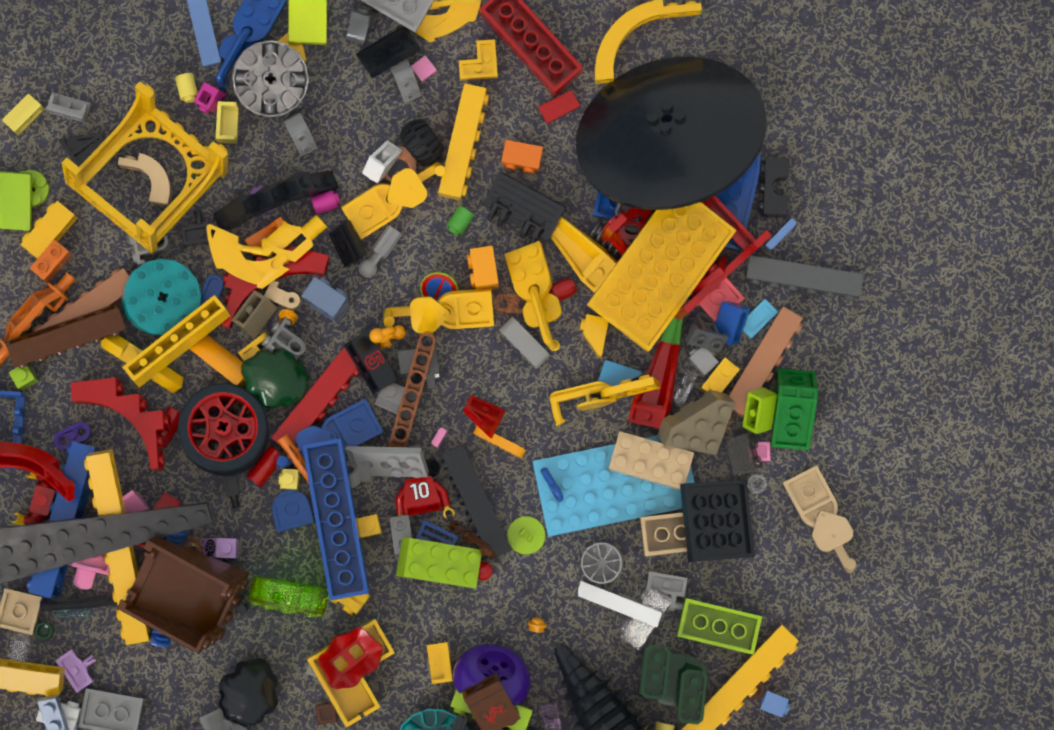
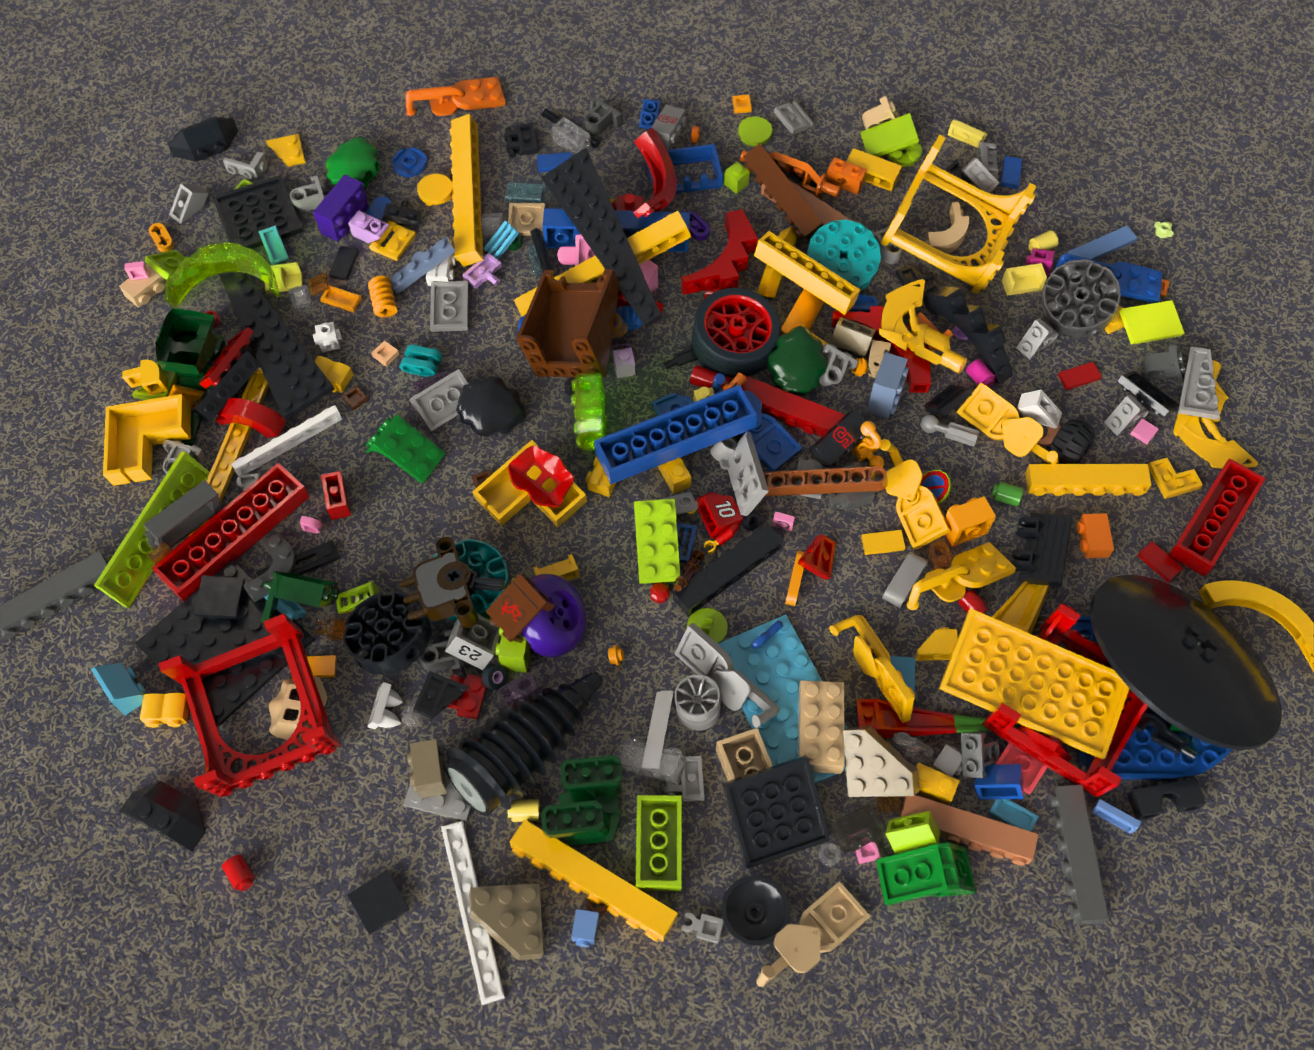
camera: 75 degrees right, 20 degrees down
(51, 656) = (499, 239): none -> medium azure tile
(86, 87) = (1011, 172): none -> blue tile
(90, 123) = (980, 176): none -> light grey plate
(348, 107) = (1079, 376): none -> red tile
(480, 351) = (883, 542): none -> yellow tile
(589, 529) = (709, 659): none -> light grey plate
(795, 602) = (707, 928): none -> light grey plate
(807, 559) = (757, 894): none -> black dish

